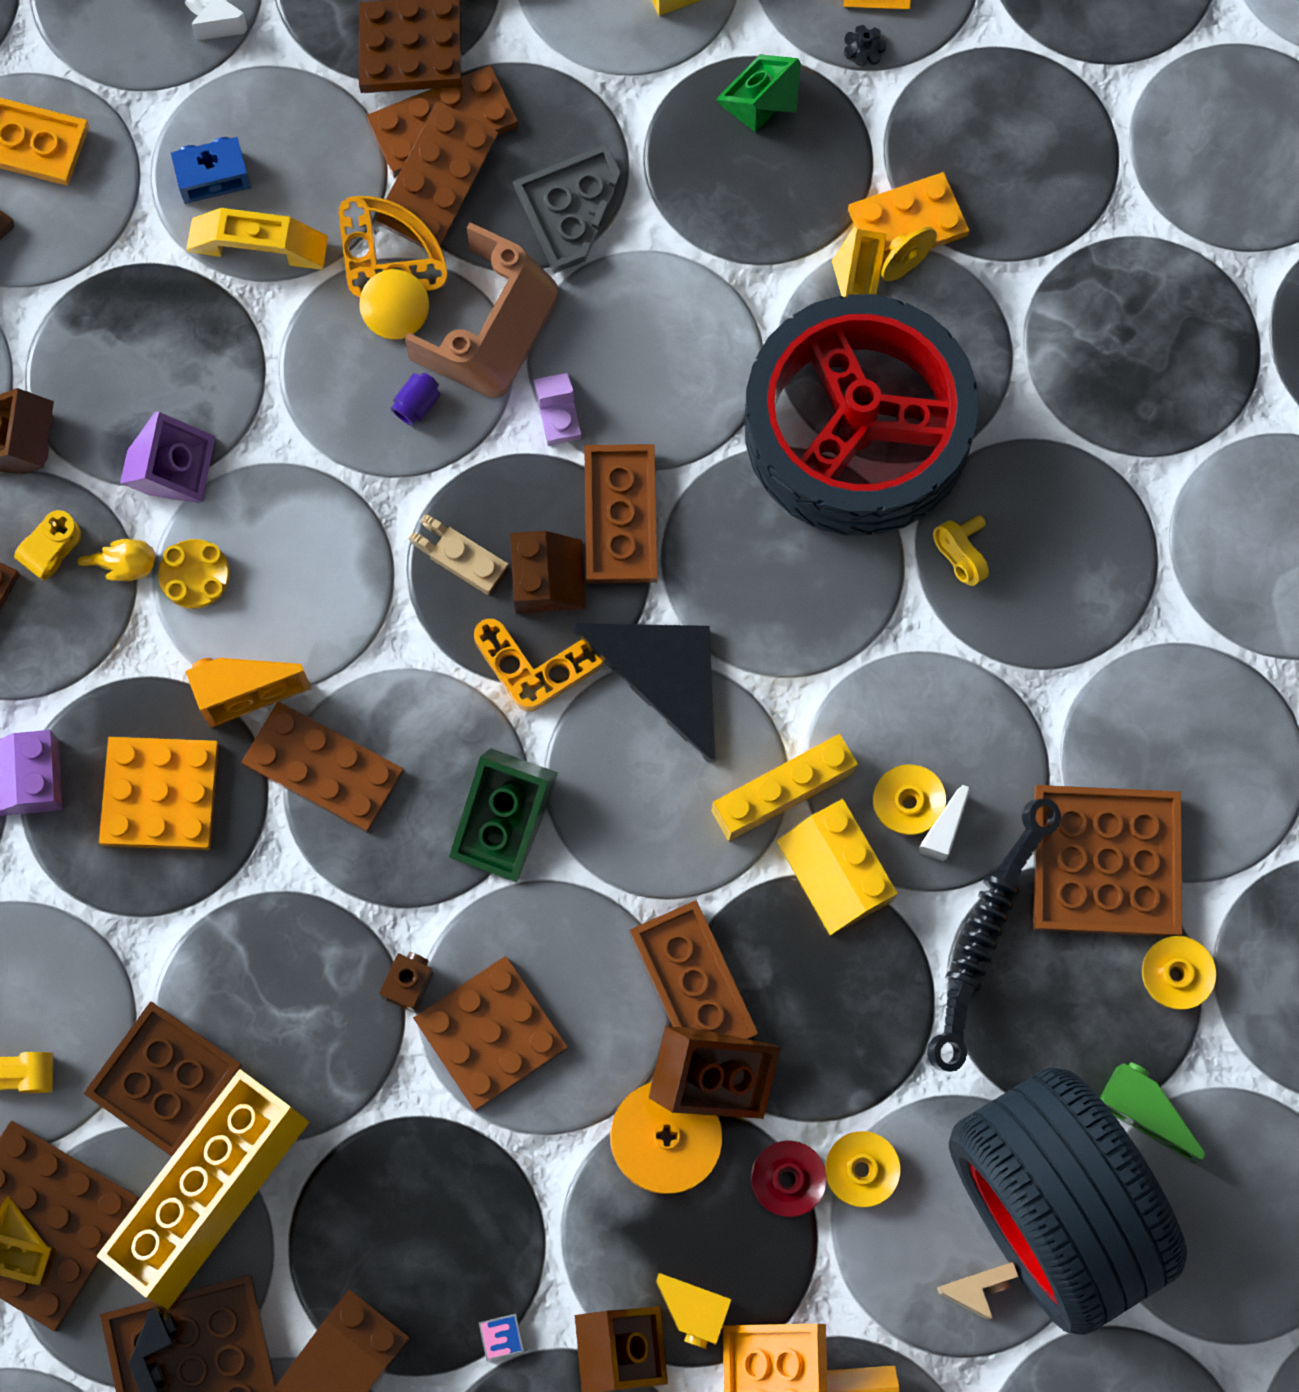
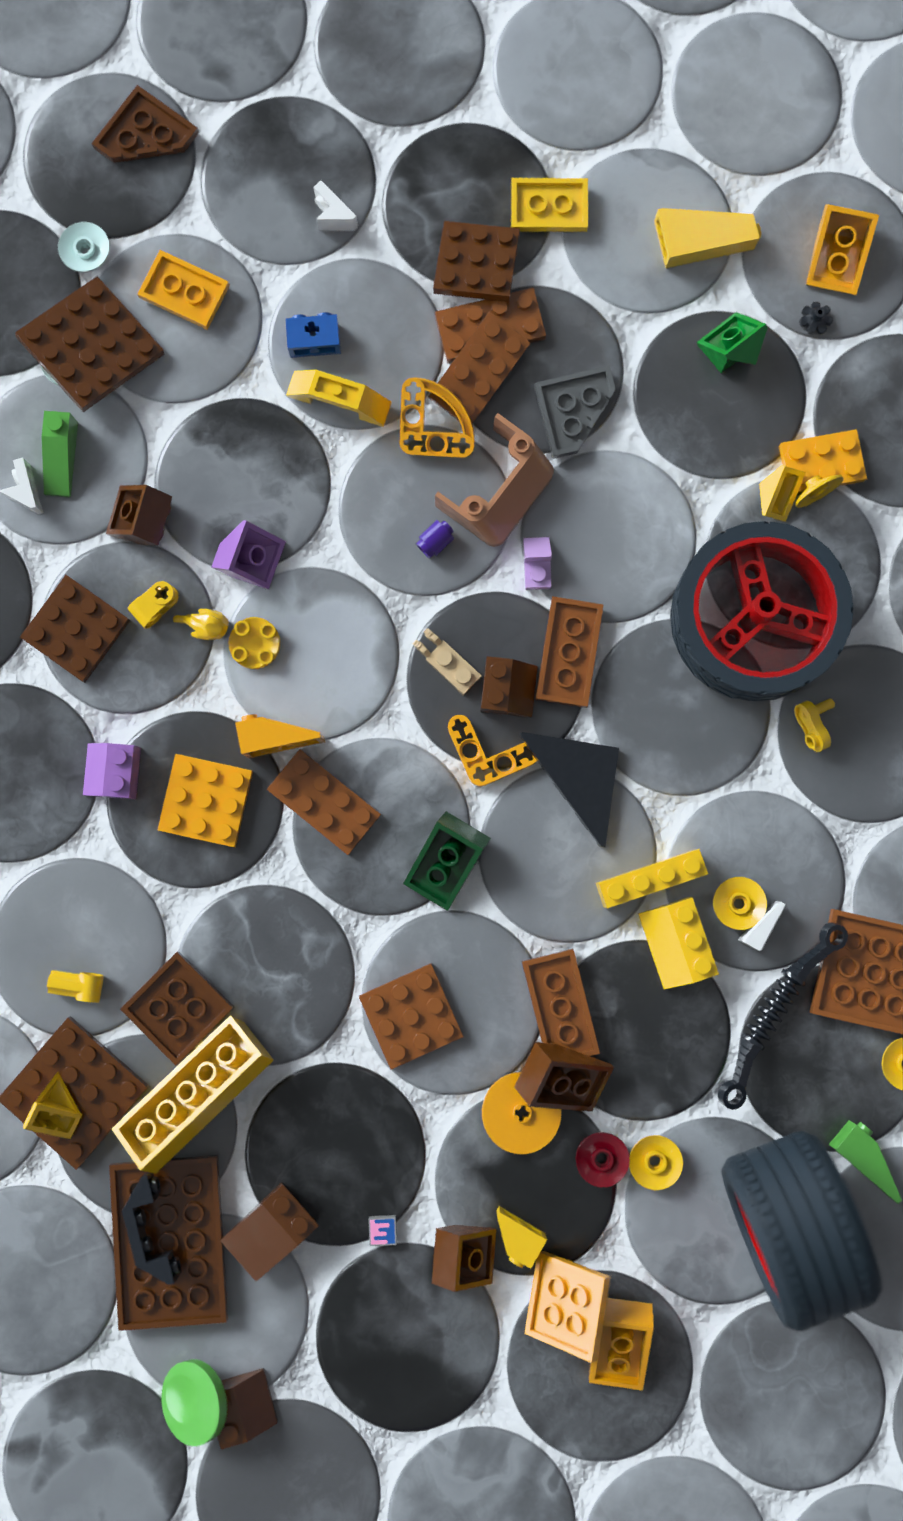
camera: 15 degrees right, 10 degrees up
(394, 304) = (431, 464): yellow dish -> none
(407, 981) = (358, 970): reddish brown brick -> none
(969, 1290) = (714, 1259): tan slope -> none

